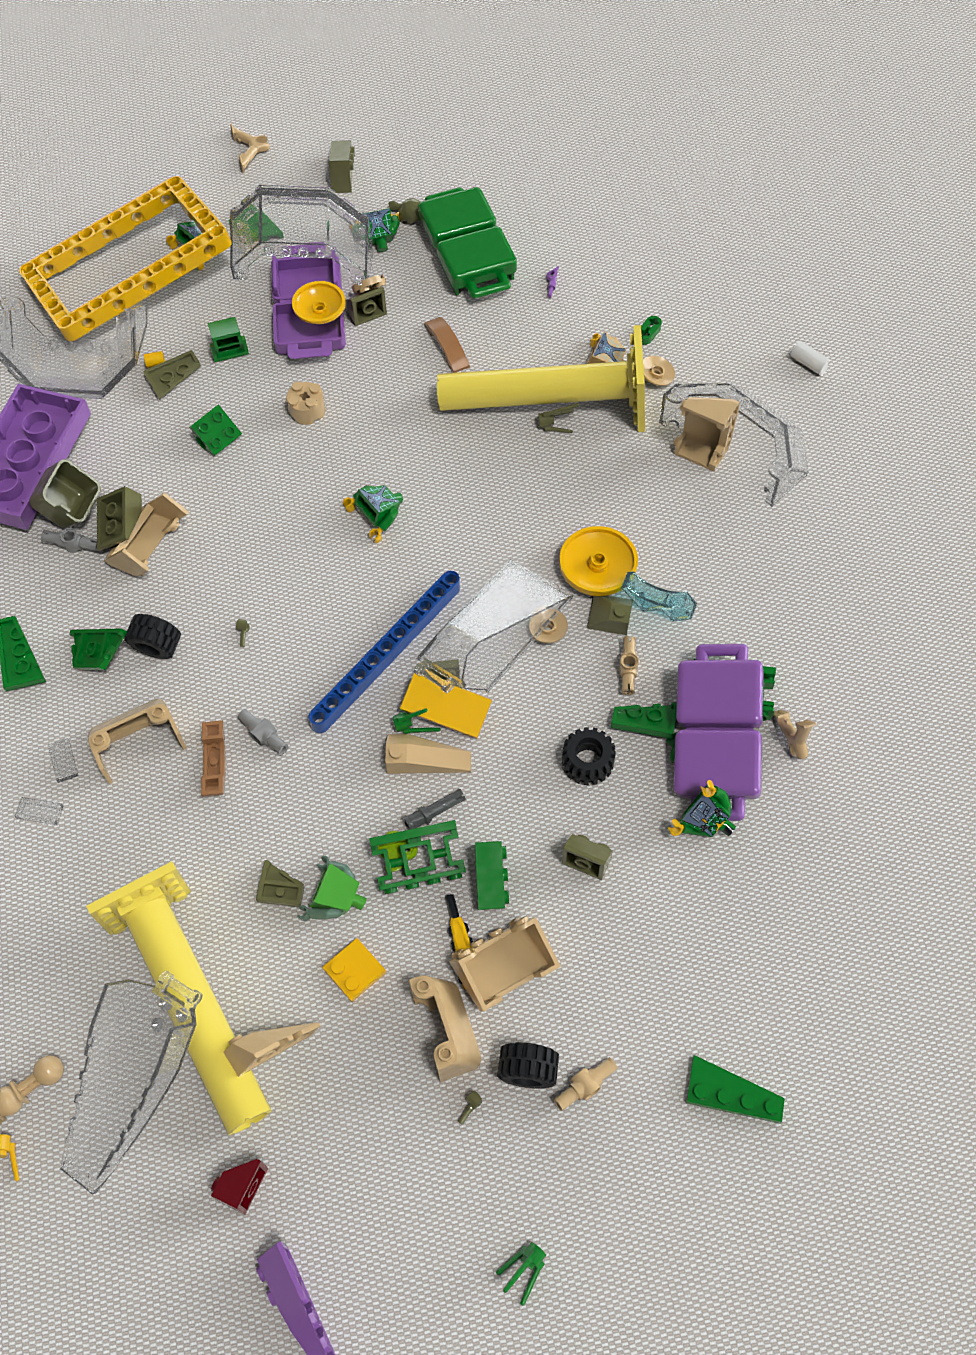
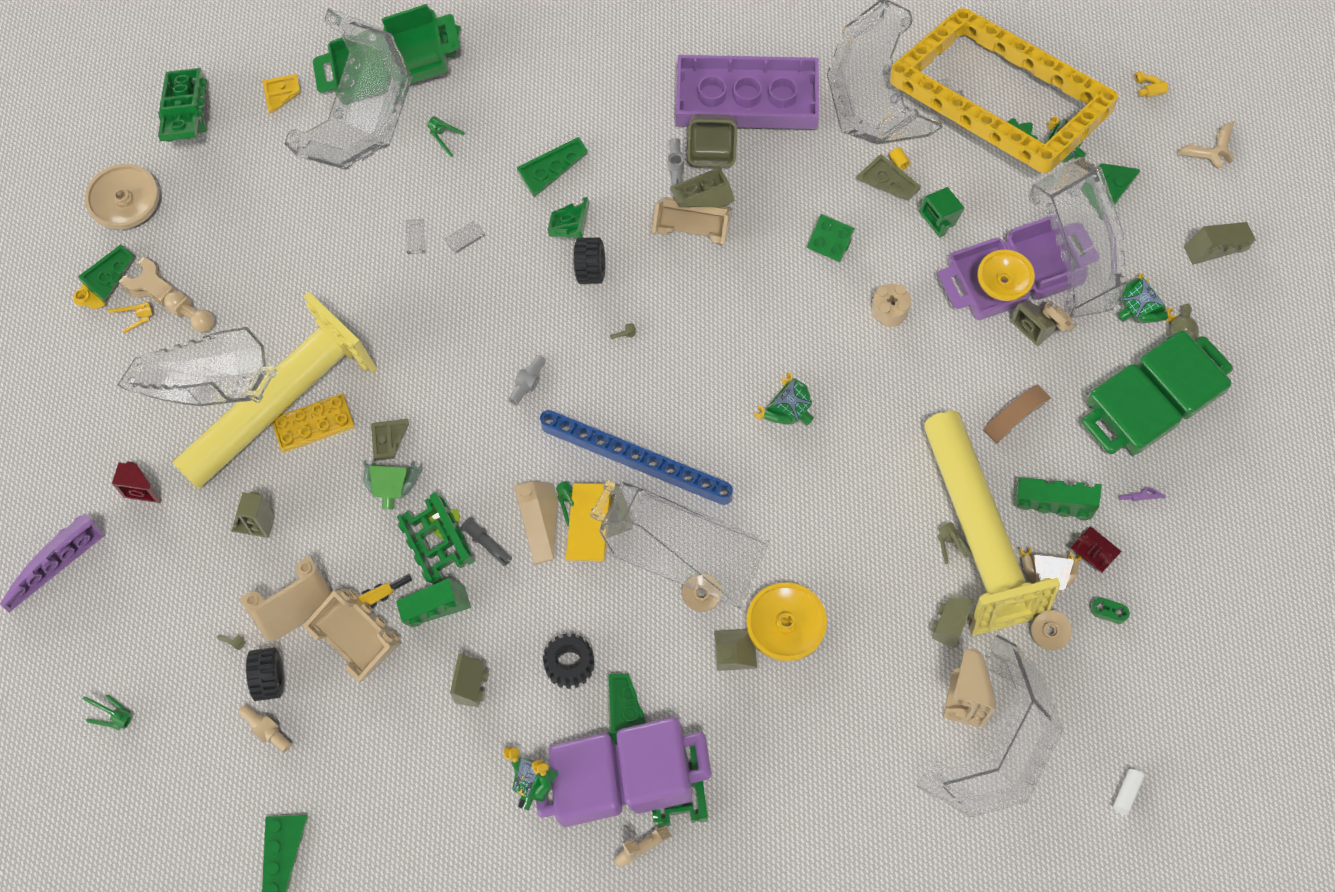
camera: 75 degrees right, 5 degrees up
(125, 724) = (520, 288): tan windscreen -> none
(172, 167) = (1157, 88): none -> yellow plant
(213, 758) = (490, 351): medium nougat slope -> none
(230, 965) = (312, 423): none -> yellow tile
(260, 1046) = (236, 460): tan wedge -> none
(328, 1050) = (253, 516): none -> olive wedge
(354, 970) = (329, 519): yellow plate -> none
(539, 331) = (1058, 497): none -> green wedge
(594, 321) = (1096, 549): none -> dark red hinge
(627, 673) = (667, 678): tan pin -> none
(632, 433) = (952, 620): none -> olive slope
(647, 597) = (757, 687): clear light blue arch -> none

